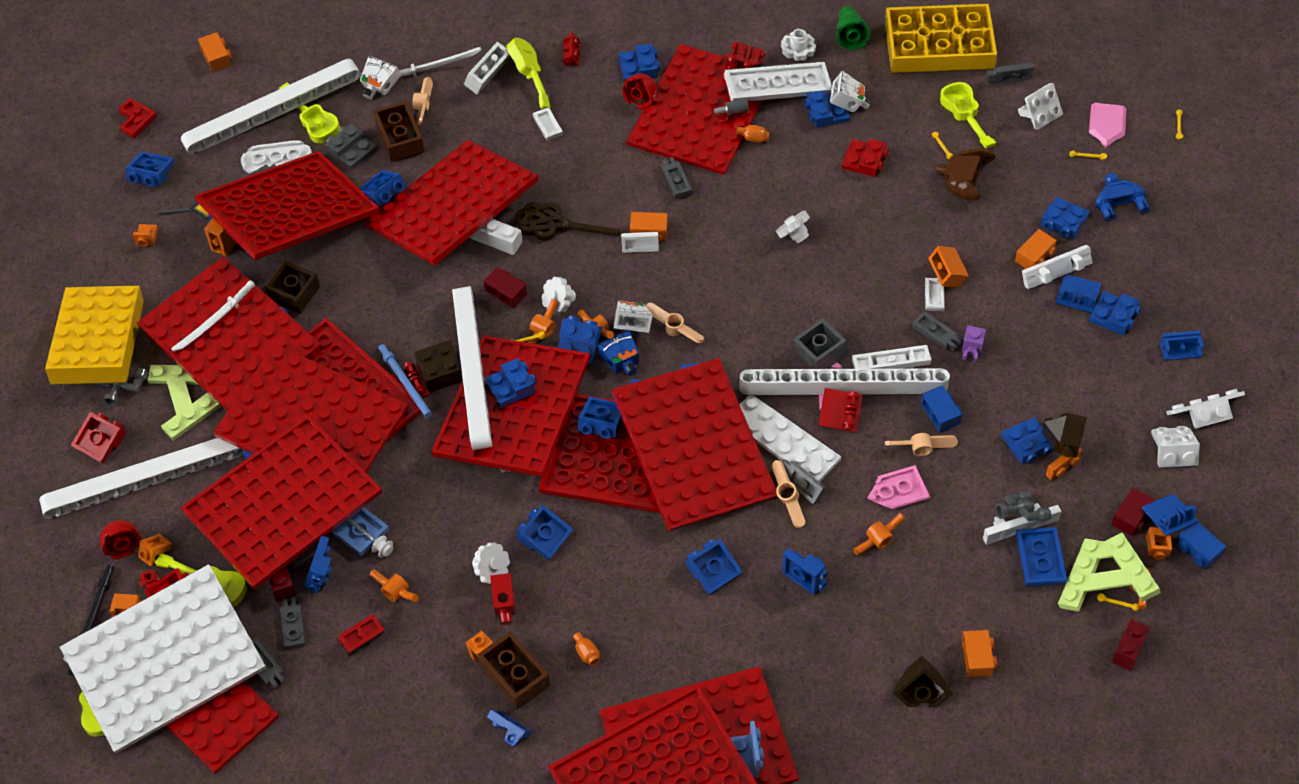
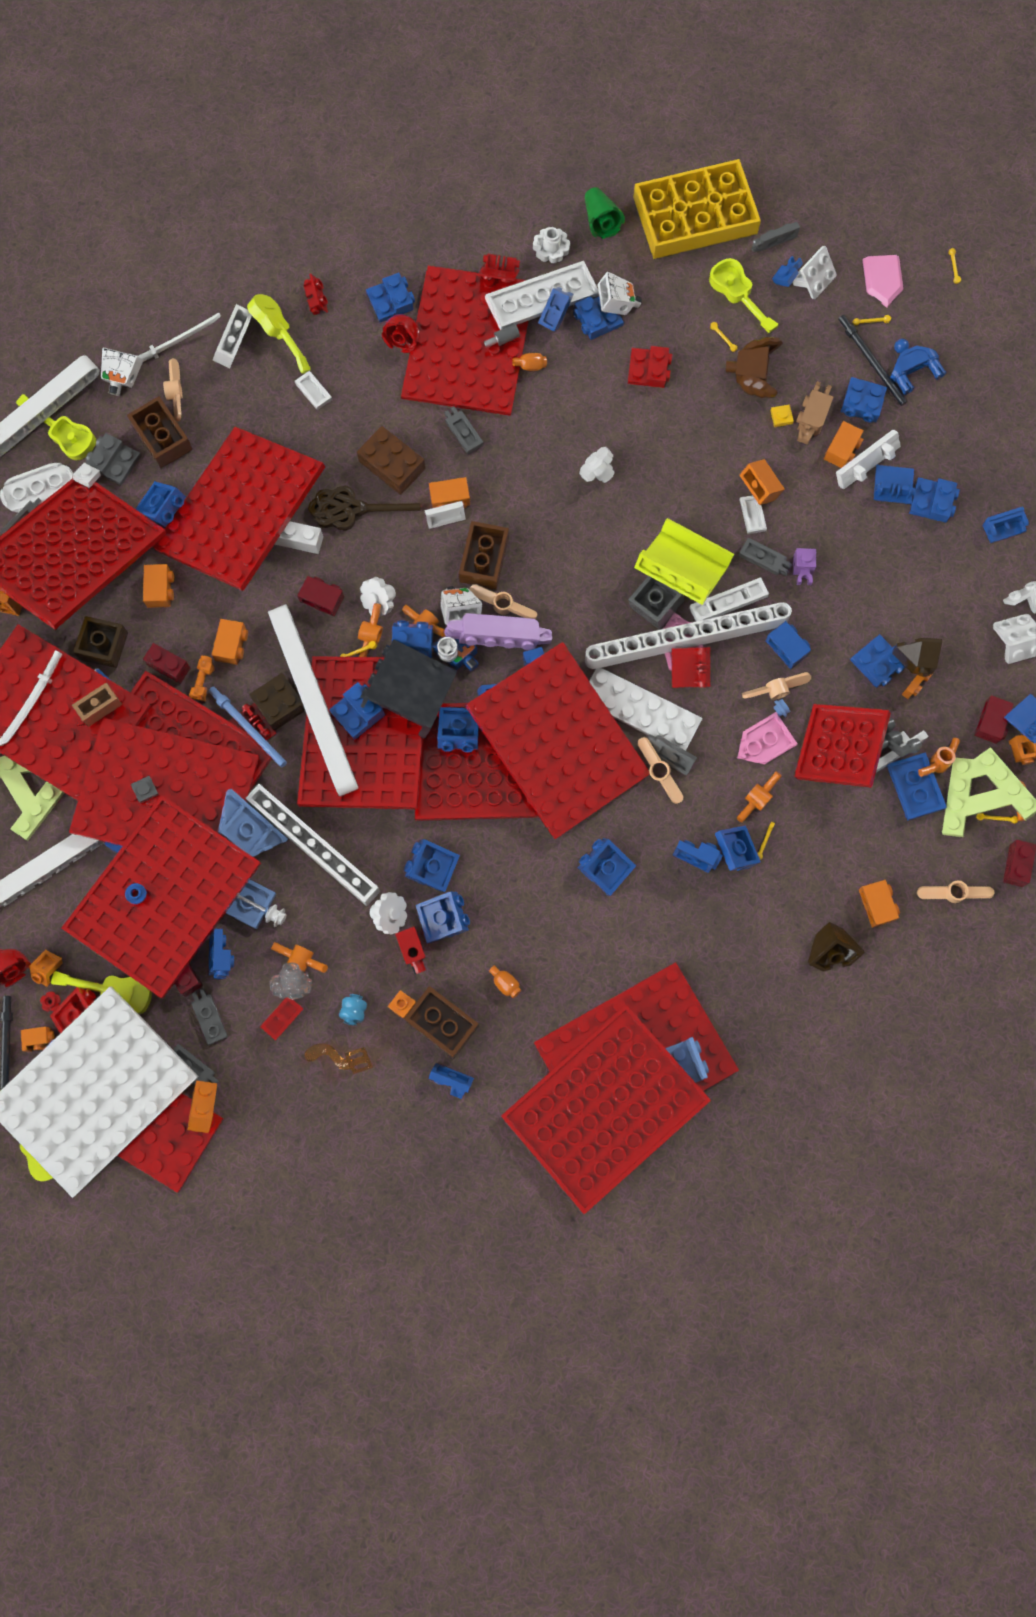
camera: 15 degrees left, 20 degrees up
(258, 495) = (141, 896): none -> blue plate
(261, 694) = (202, 1106): none -> orange brick
(273, 330) = (97, 704): none -> medium nougat brick
(293, 408) = (144, 789): none -> dark grey plate
(322, 153) = (86, 475): none -> white plate
(347, 316) = (166, 663): none -> dark red brick
(358, 252) = (157, 586): none -> orange brick
(379, 460) = (247, 827): none -> medium blue wing
(379, 602) = (290, 982): none -> clear plant
(381, 326) = (205, 668): none -> orange piece
(409, 309) = (229, 641): none -> orange brick
(412, 687) = (346, 1064): none -> clear orange piece
(431, 642) = (353, 1009): none -> dark azure piece
(435, 491) = (313, 845): none -> white brick
(542, 579) = (443, 917): none -> blue plate
(566, 369) = (409, 685): none -> black panel
(602, 189) = (391, 460): none -> reddish brown brick
(609, 347) = (447, 644): none -> white wheel
(660, 342) = (498, 631): none -> lavender hinge
(666, 279) = (484, 555): none -> reddish brown brick
(787, 93) = (555, 308): none -> blue hinge
(845, 572) = (737, 848): none -> blue plate
(856, 317) = (684, 561): none -> neon yellow panel
(867, 589) = (765, 840): none -> yellow hinge
(921, 462) = (781, 708): none -> medium blue plate
(972, 501) = (842, 745): none -> red plate
(982, 218) = (782, 415): none -> yellow plate
(1013, 220) = (815, 413): none -> medium nougat hinge
(1014, 104) = (788, 273): none -> blue plate
(1048, 659) = (944, 892): none -> light nougat piece
(1066, 161) = (852, 332): none -> black bar
(1071, 536) = (941, 759): none -> orange piece

